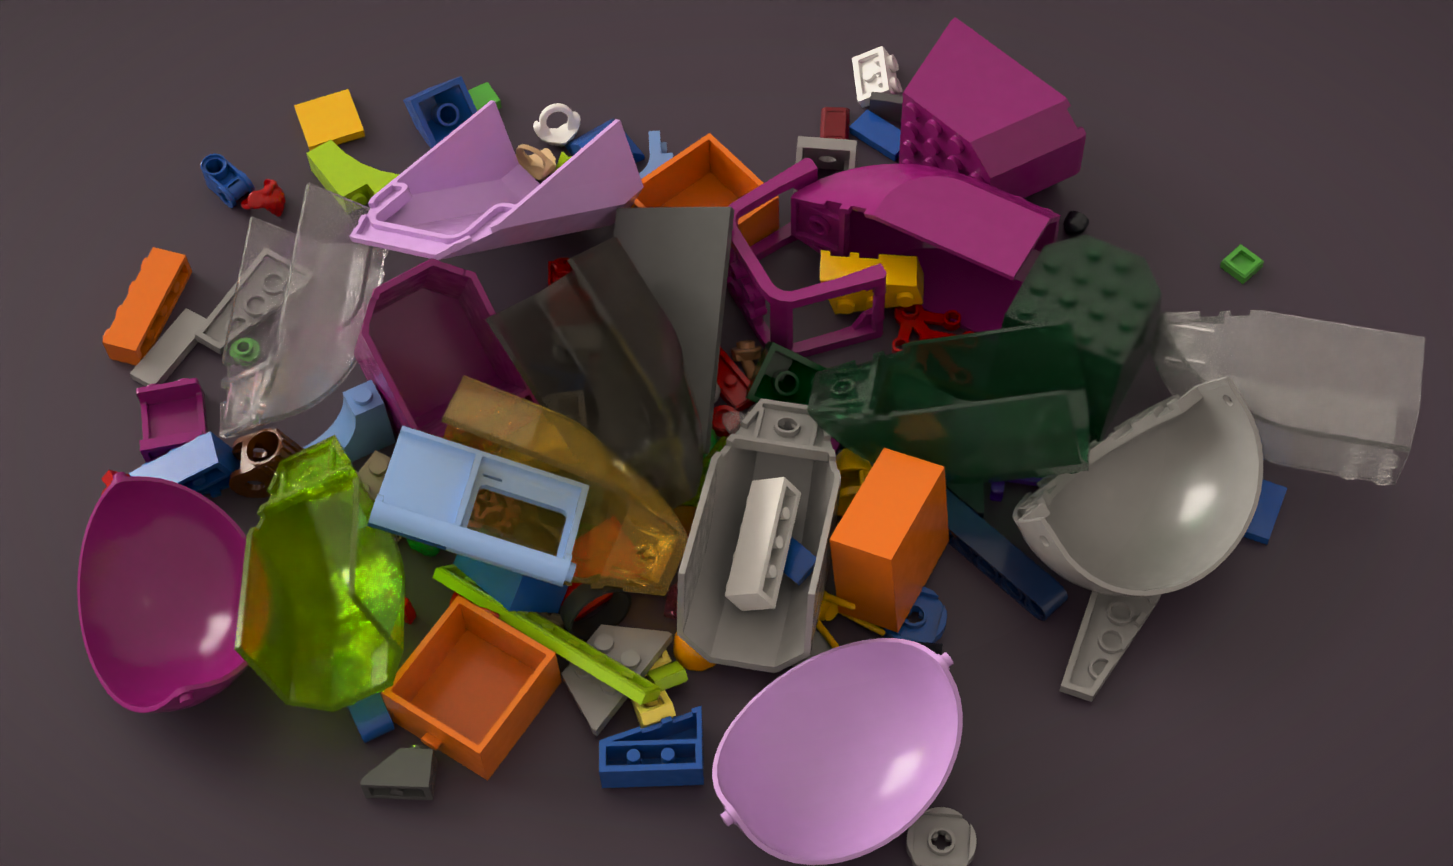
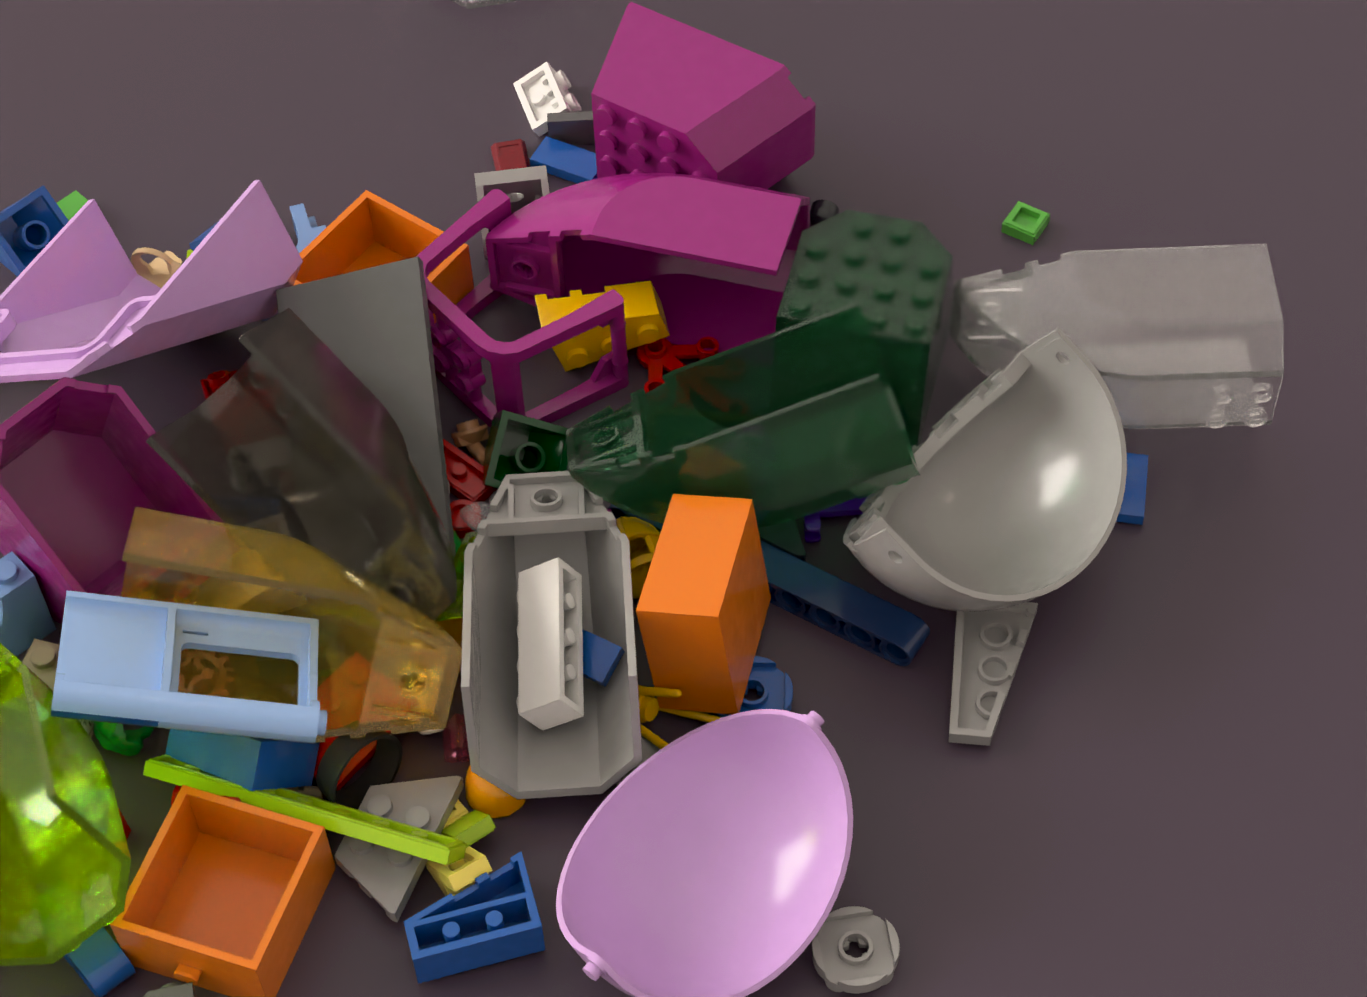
camera: 15 degrees left, 5 degrees down
(561, 135) = (183, 233): white piece -> none

